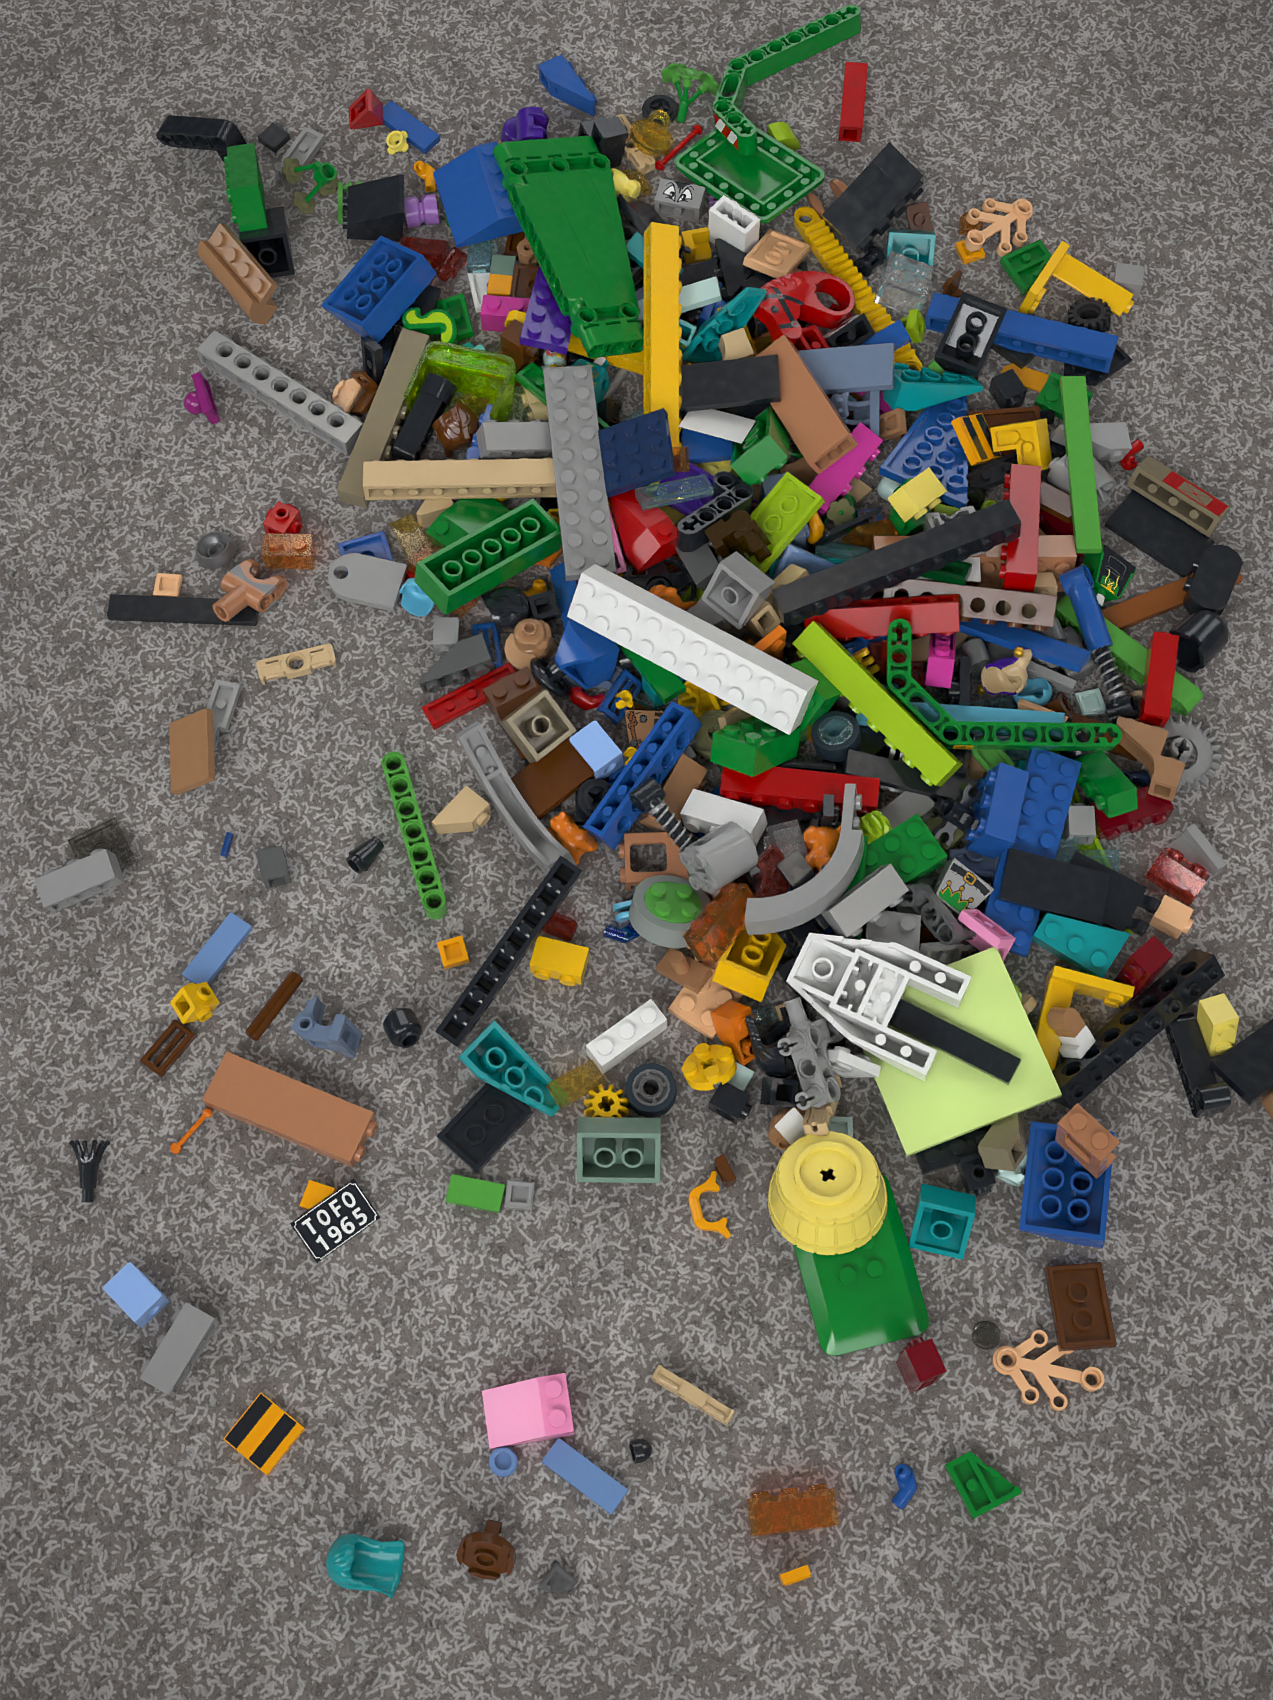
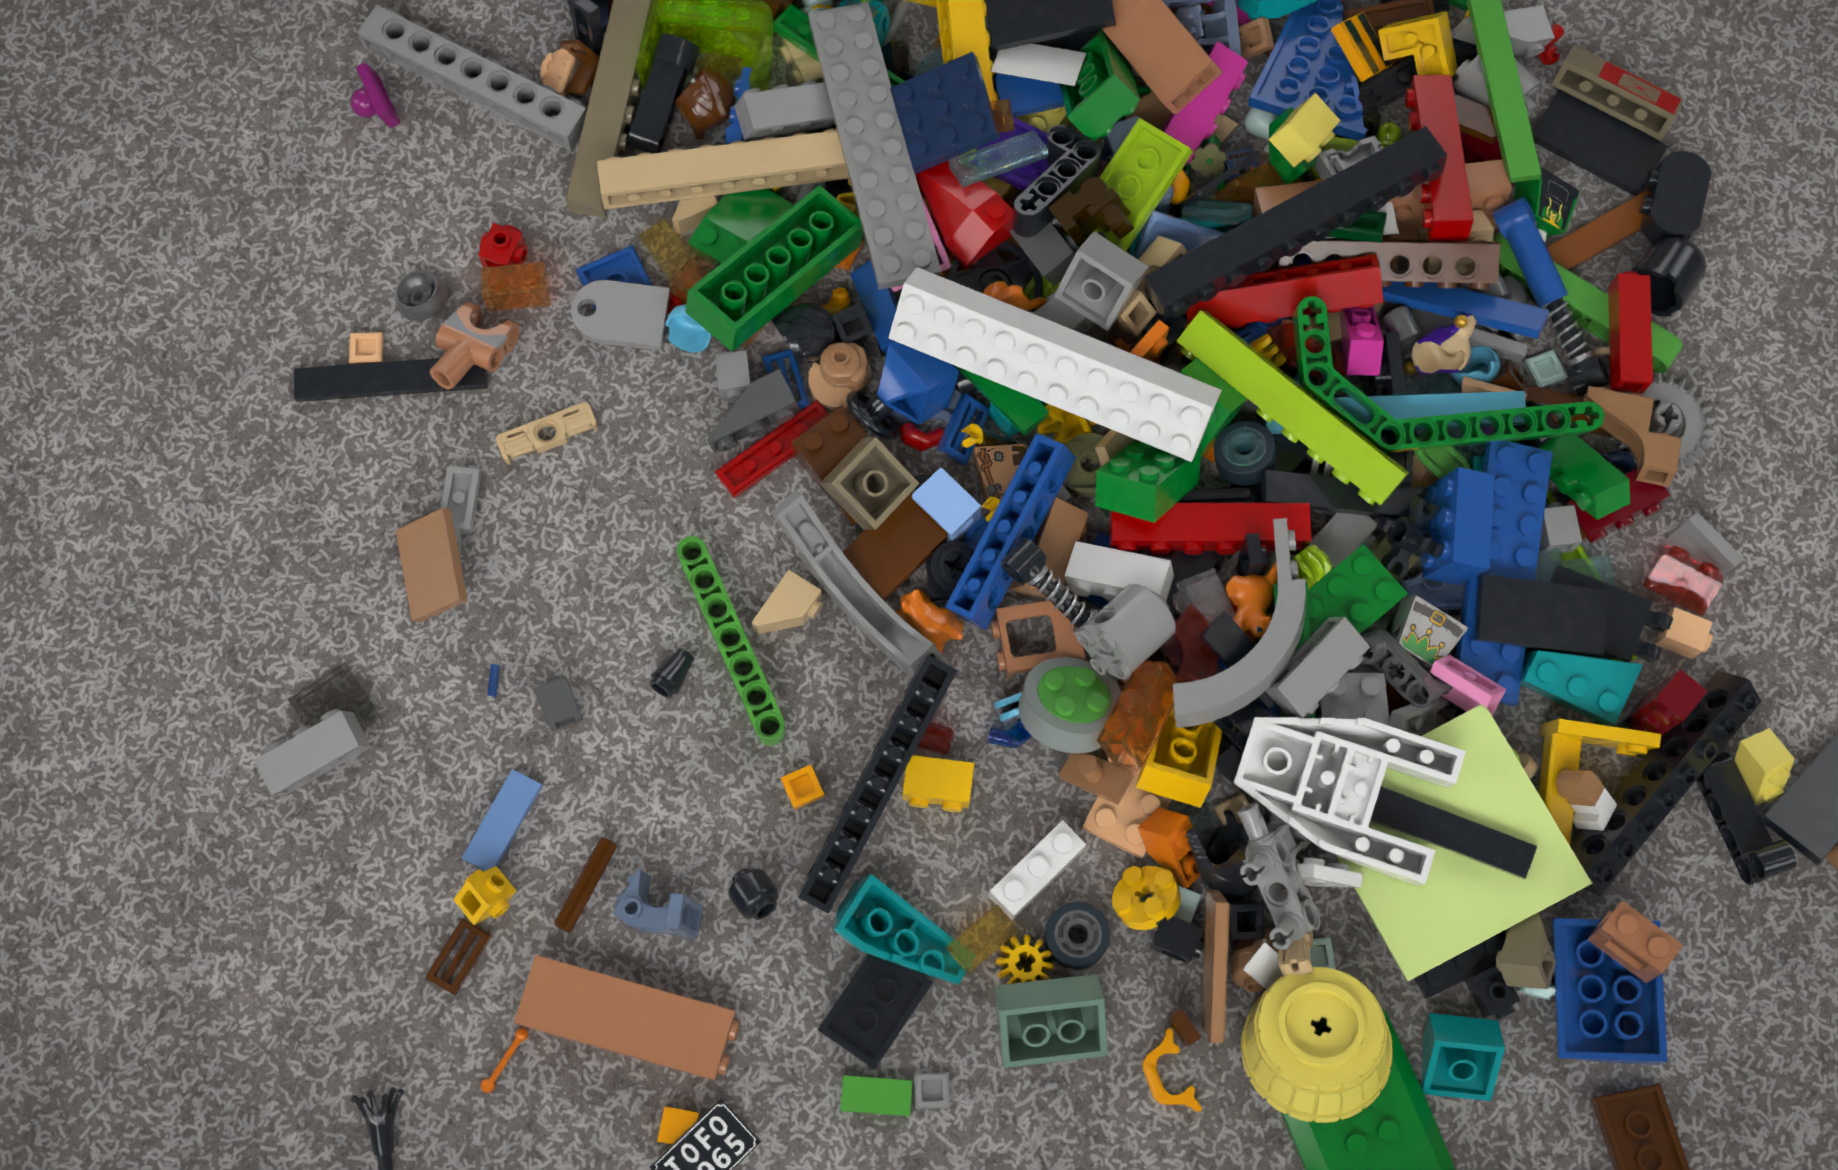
camera: 10 degrees left, 5 degrees up
(753, 1122) = (1215, 966): none -> medium nougat tile

